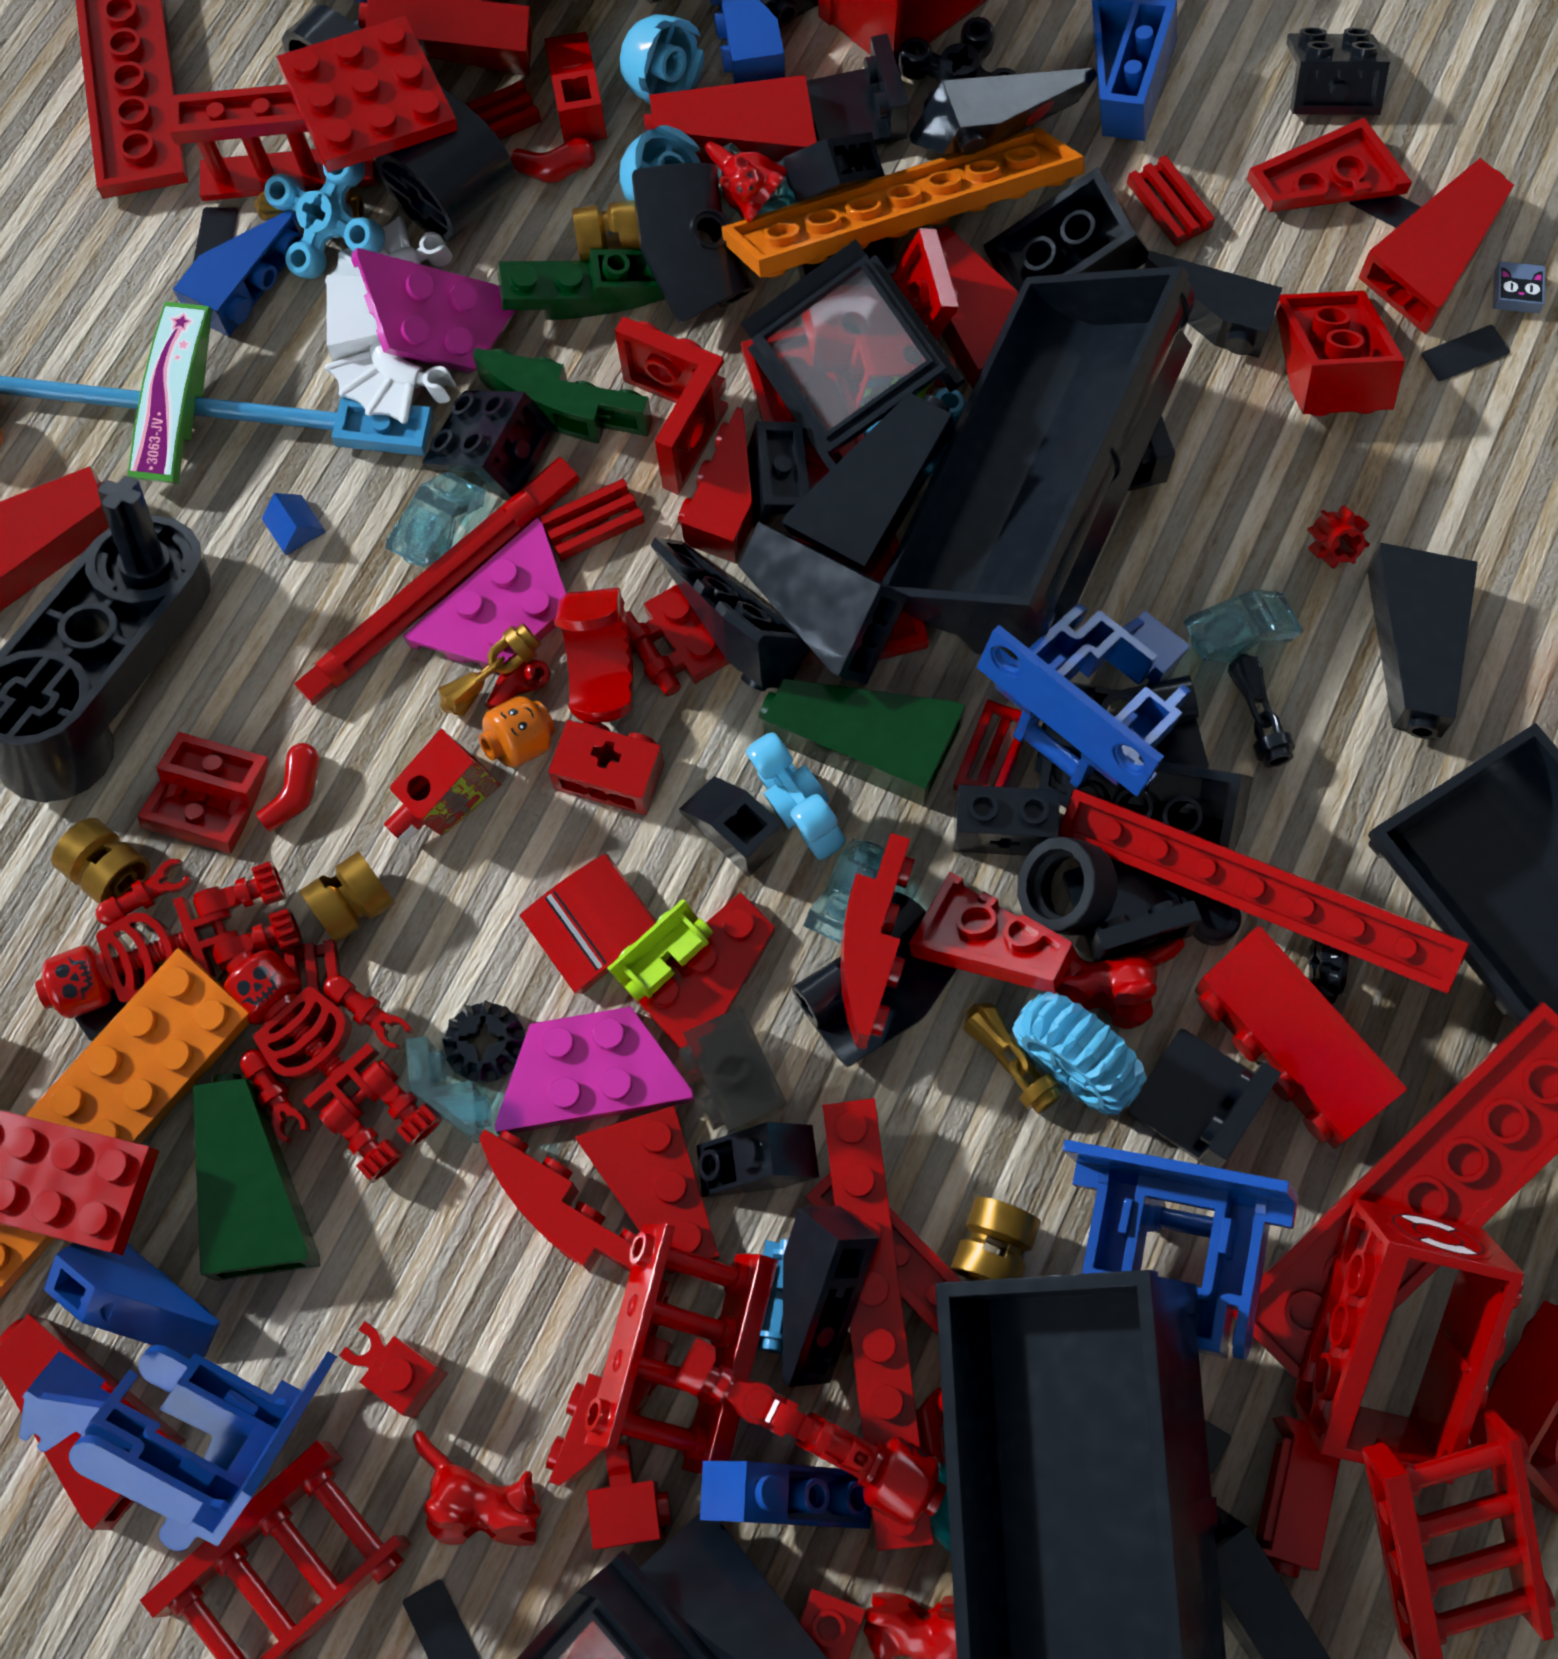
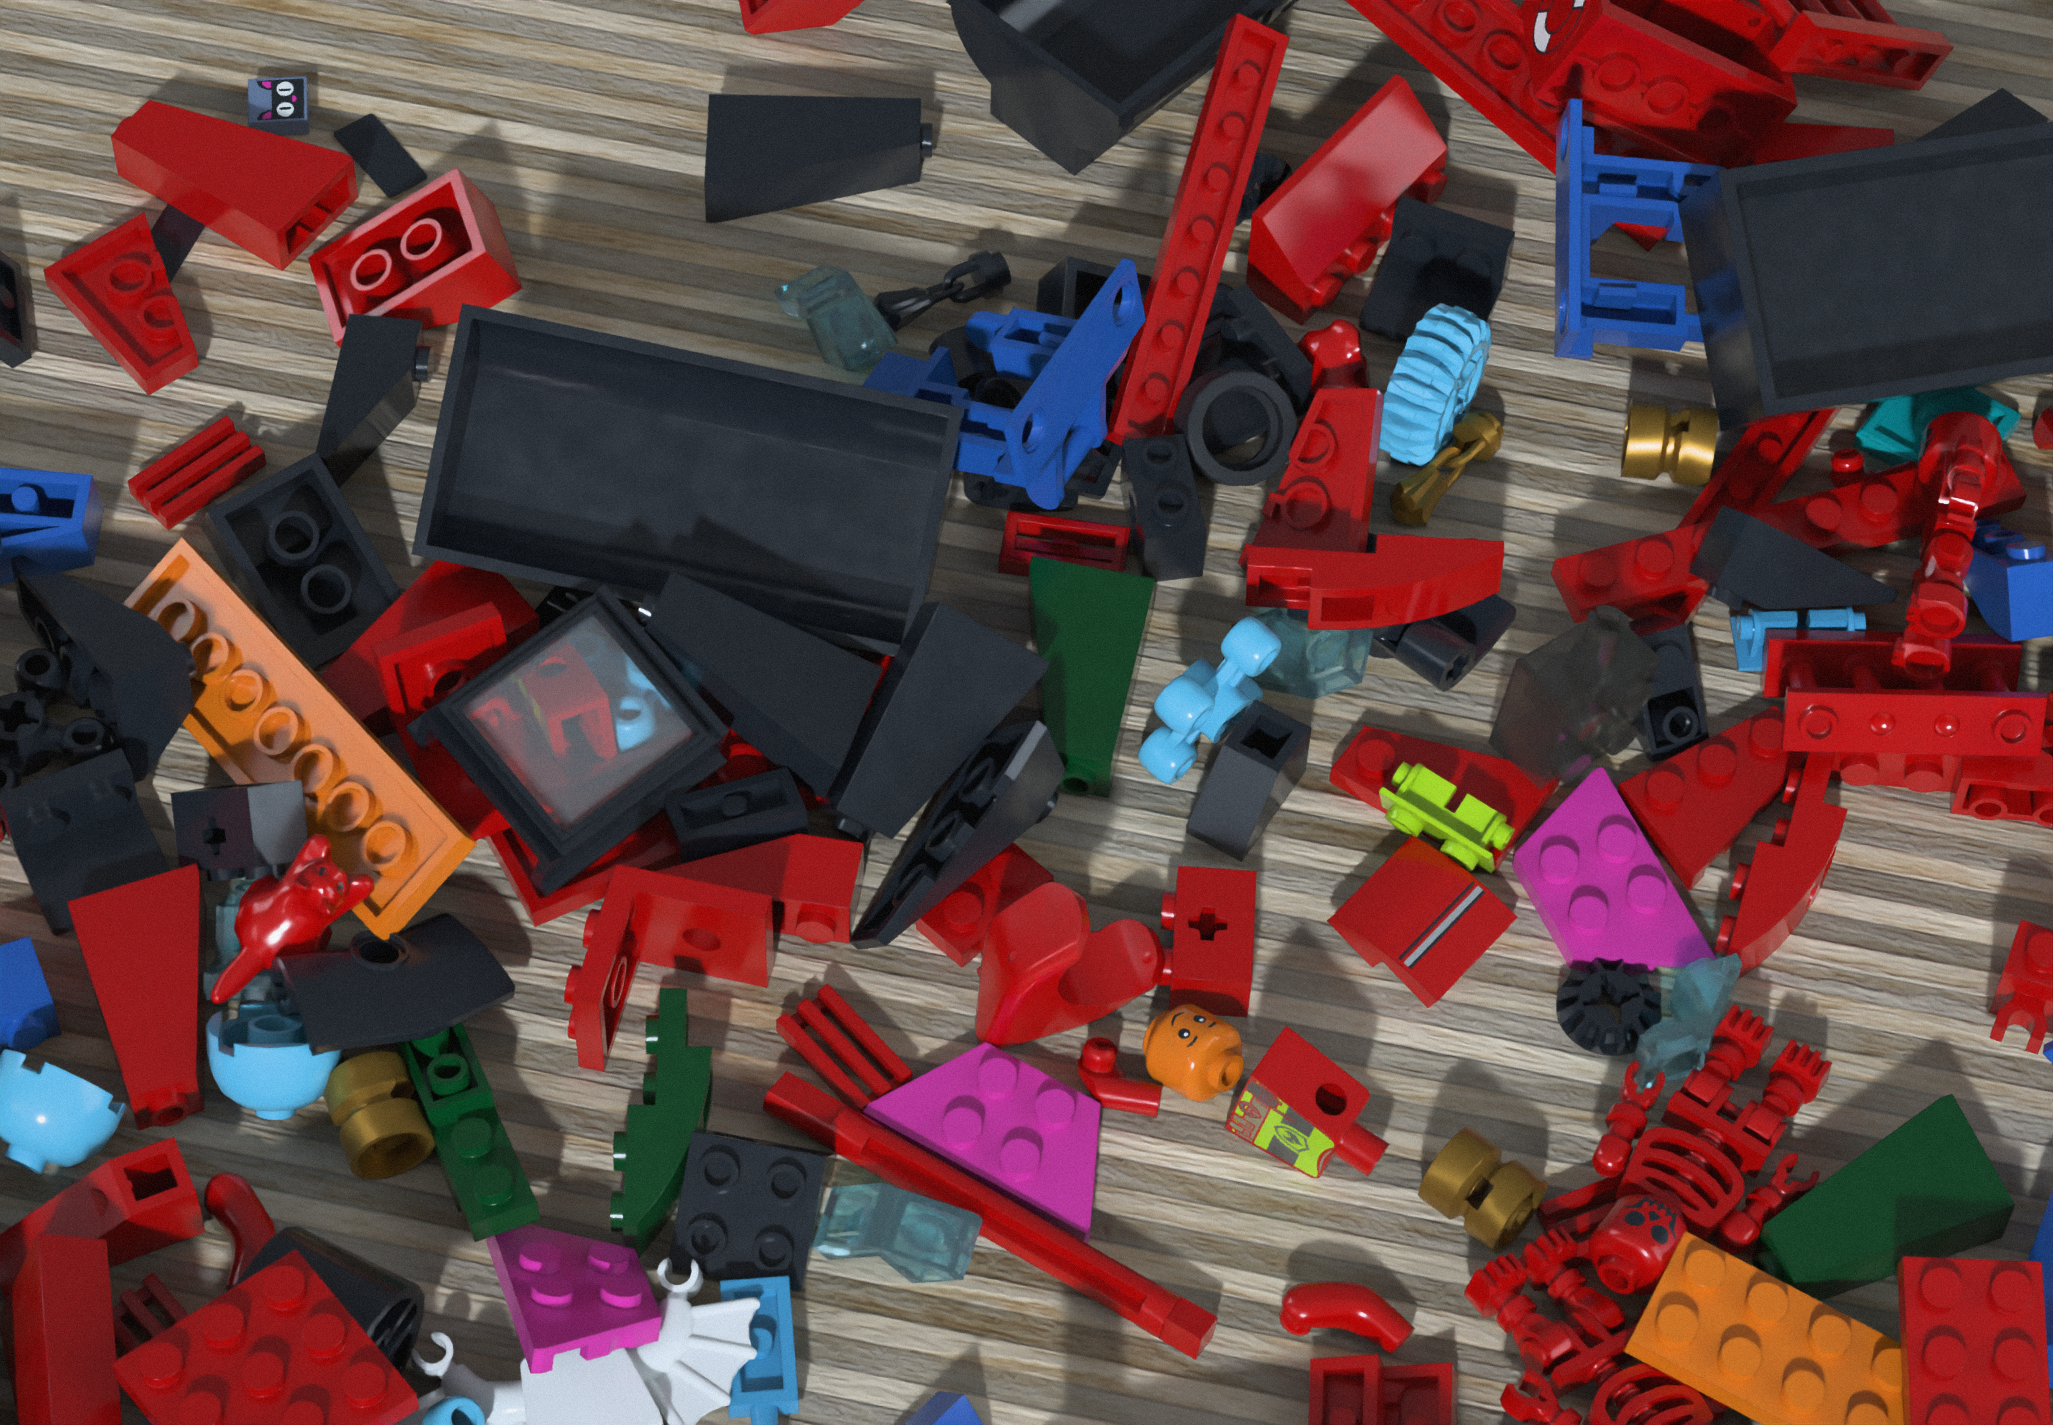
camera: 110 degrees left, 15 degrees down
(460, 694) = (1153, 1139): pearl gold piece -> none
(1338, 536) = (693, 236): red gear -> none

